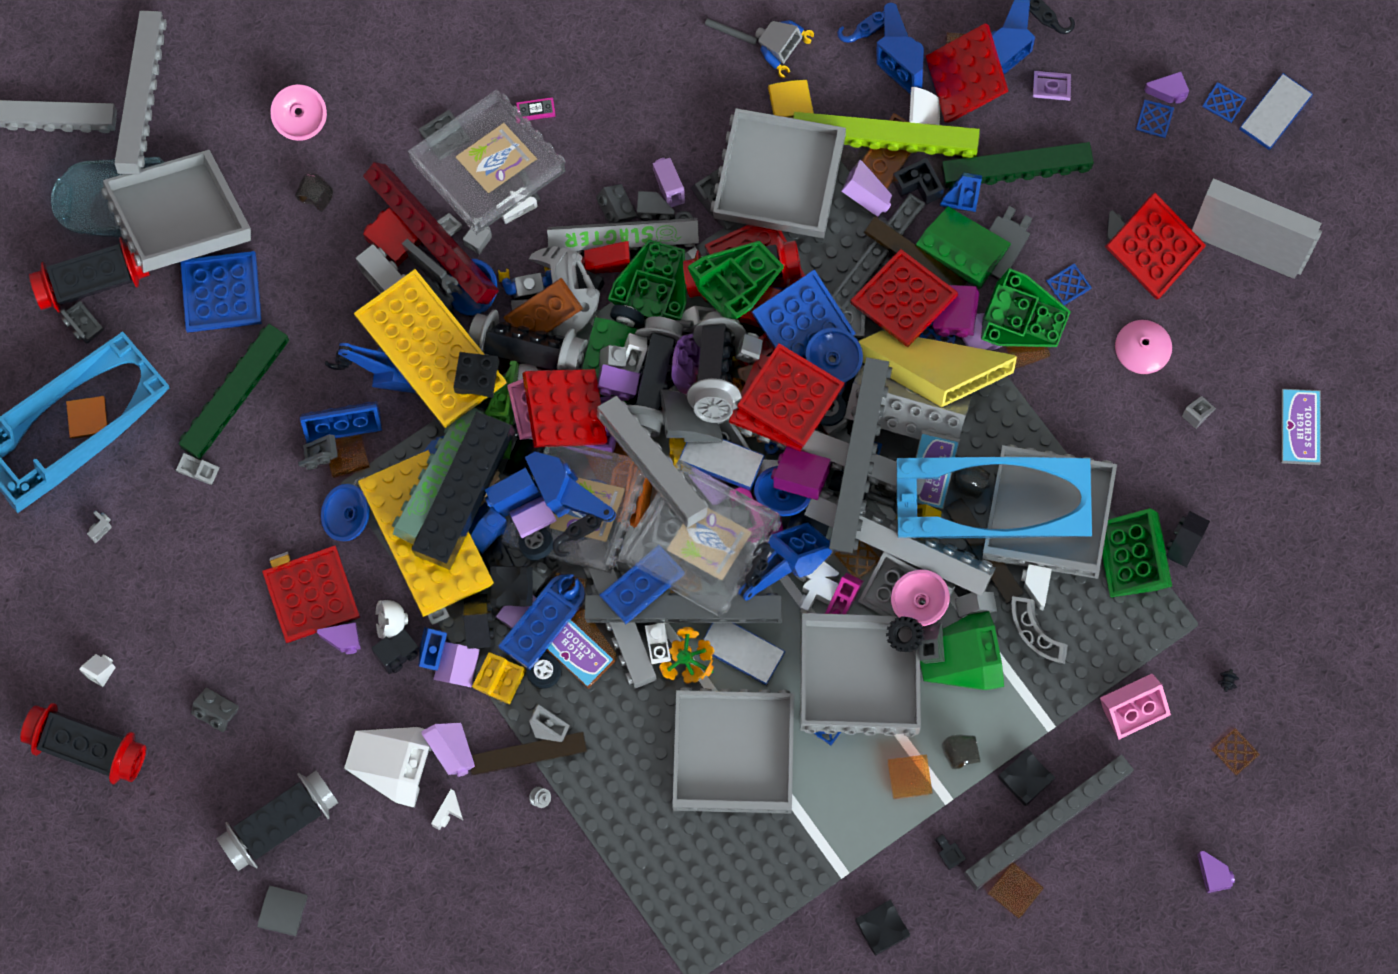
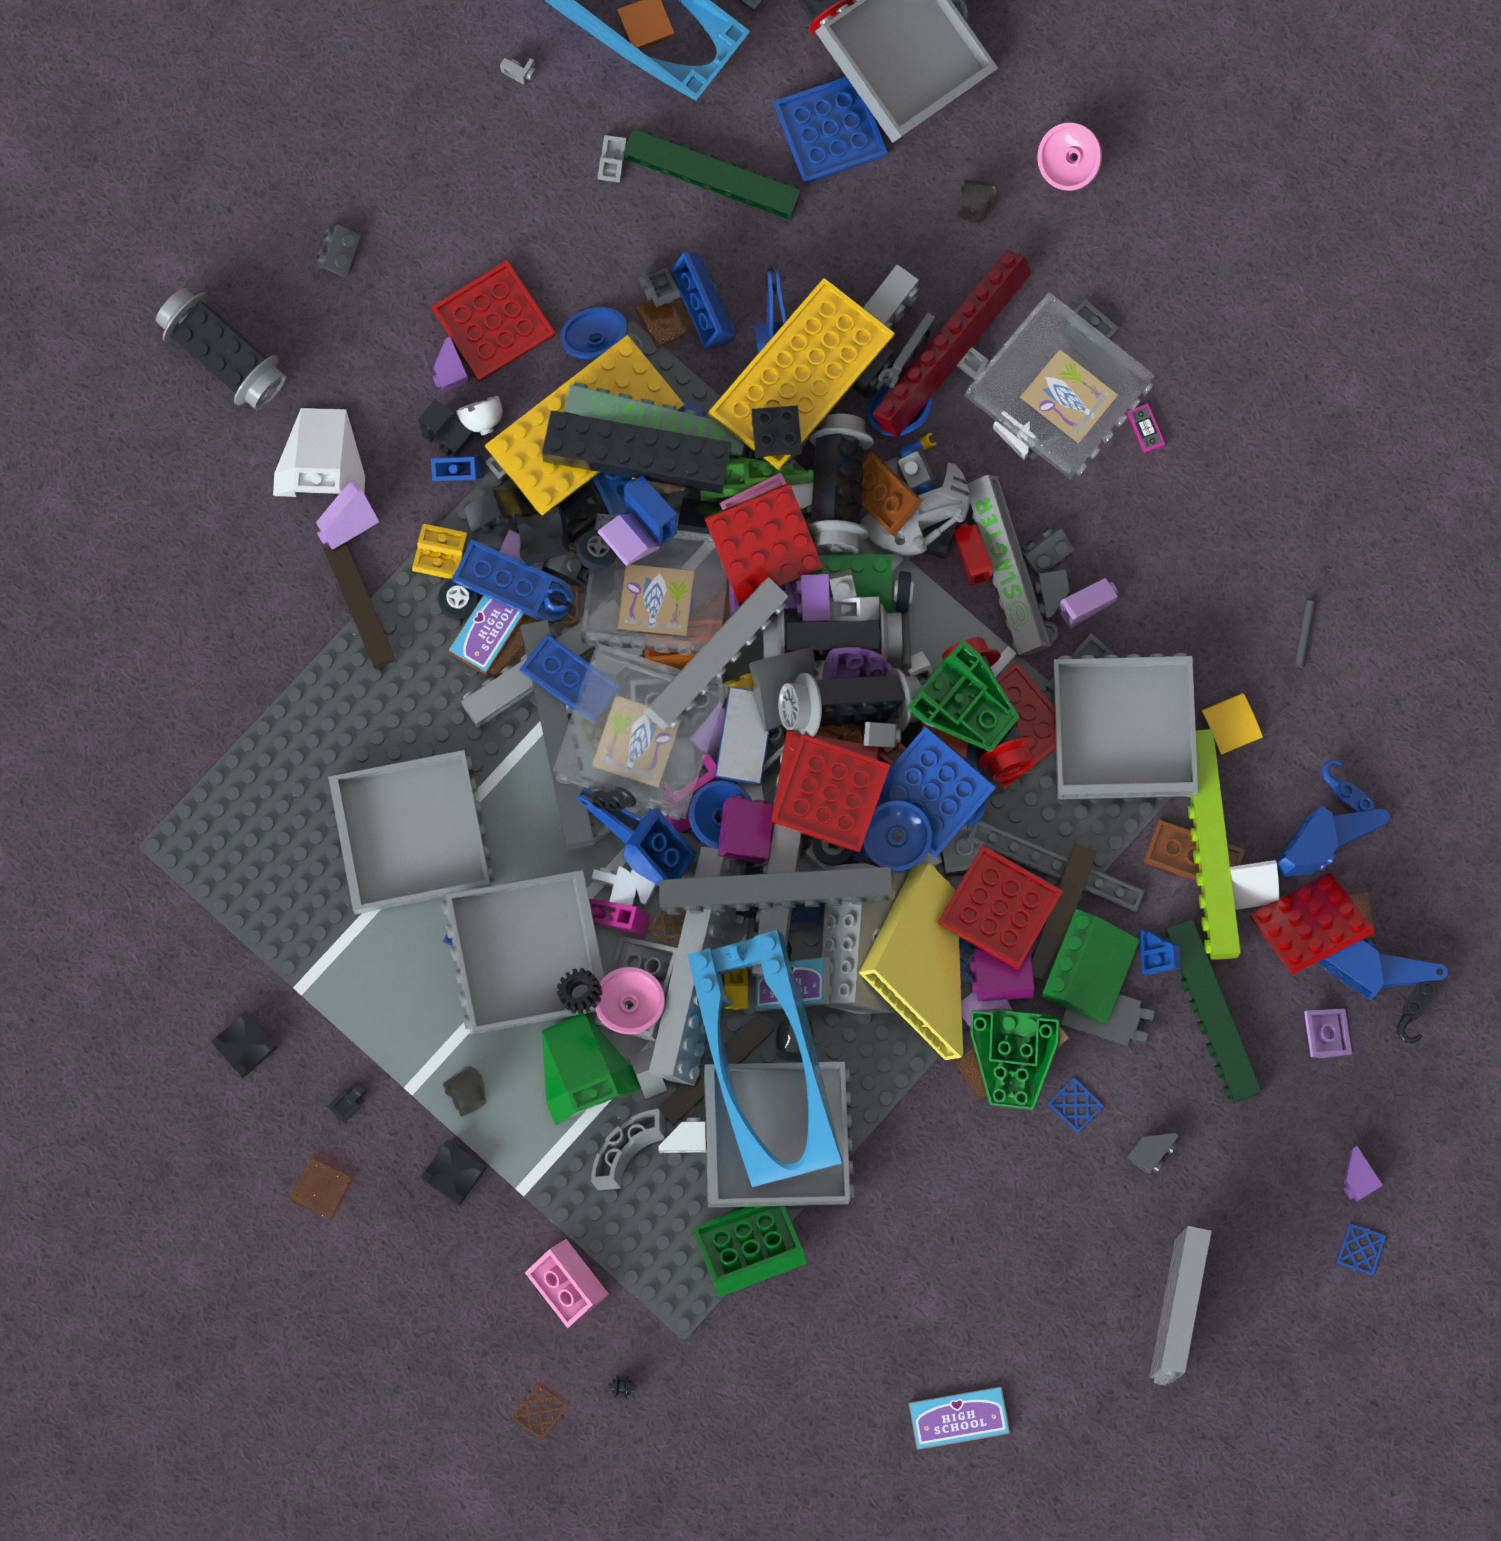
camera: 75 degrees right, 5 degrees up
(83, 743) = (262, 118): black brick -> none
(98, 669) = (352, 112): white slope -> none
(280, 559) = (525, 276): pearl gold tile -> none
(282, 911) = (126, 382): dark grey slope -> none
(389, 234) = (941, 298): red brick -> none
(450, 806) = (281, 533): white slope -> none
(457, 665) = (445, 501): lavender slope -> none
(479, 241) = (960, 403): light grey brick -> none
(488, 529) = (604, 495): blue slope -> none
(540, 797) = (313, 630): light grey wheel -> none
(547, 725) = (393, 616): light grey slope -> none
(564, 494) = (660, 562): blue slope -> none
(653, 282) = (952, 610): green wedge -> none
(657, 643) = (515, 718): white slope -> none
(682, 654) = (512, 746): light orange plant -> none
(744, 651) = (531, 818): flat silver tile -> none
(779, 42) = (1302, 693): light grey torso -> none
(867, 189) = (1134, 837): lavender slope -> none
(909, 776) = (425, 1038): clear orange tile -> none
(920, 177) = (1166, 896): black brick -> none
(932, 645) = (580, 1027): dark grey slope -> none
(1048, 822) = (406, 1208): dark grey brick -> none
(1140, 357) = (1009, 1225): bright pink dish -> none
(1155, 246) = (1144, 1197): red plate -> none
(1158, 106) = (1299, 1166): blue window -> none
(1189, 534) = (783, 1304): black brick -> none
(1198, 412) = (949, 1291): light grey slope -> none
(1215, 873) = (386, 1413): medium lavender slope -> none
(1276, 111) = (1364, 1315): flat silver tile -> none

